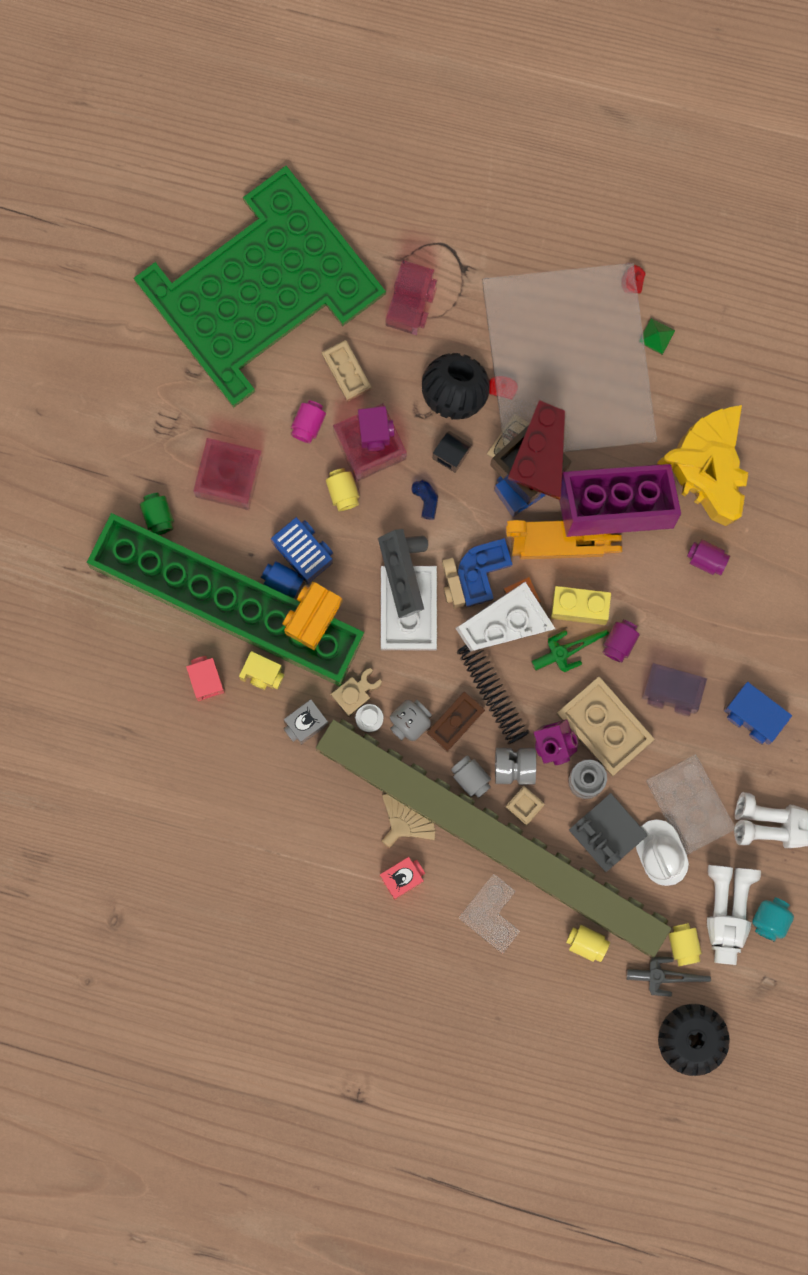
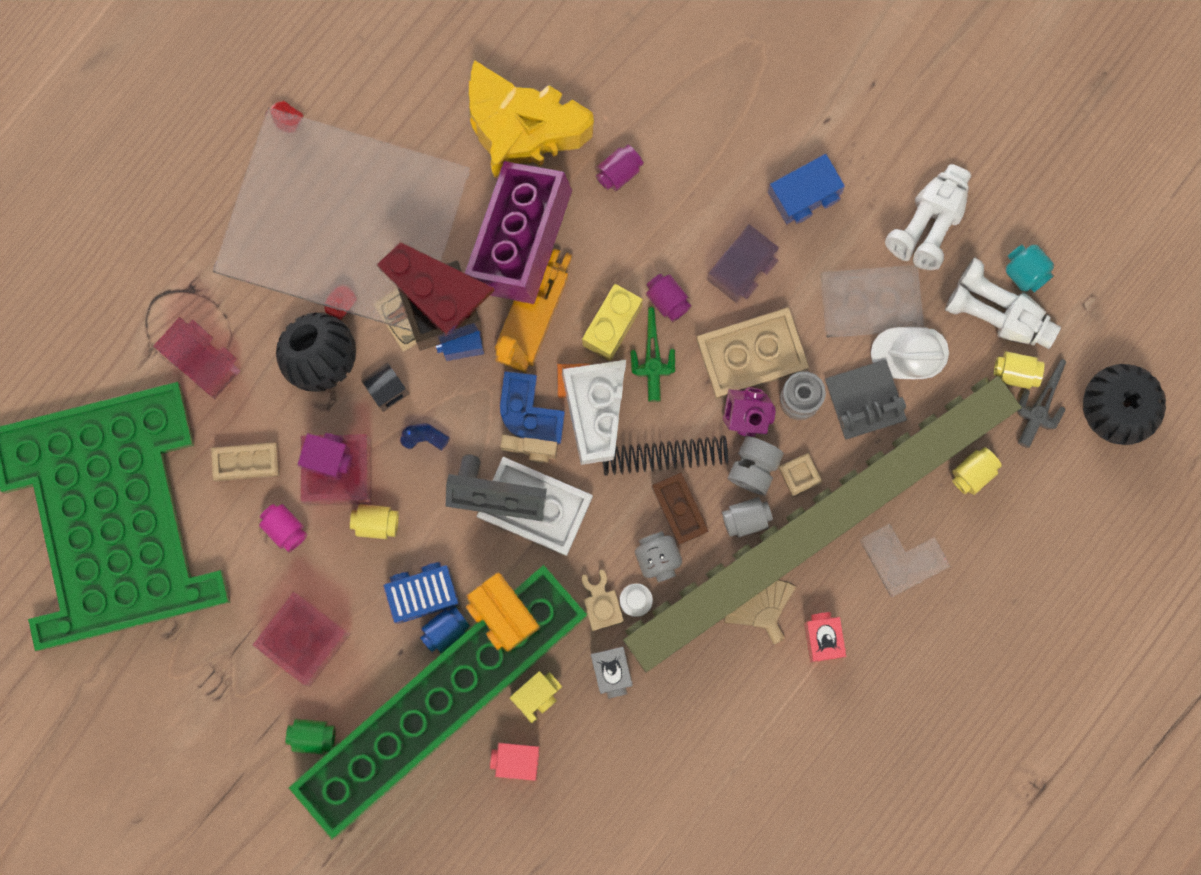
camera: 60 degrees left, 0 degrees up
(657, 336) = (357, 118): green slope -> none

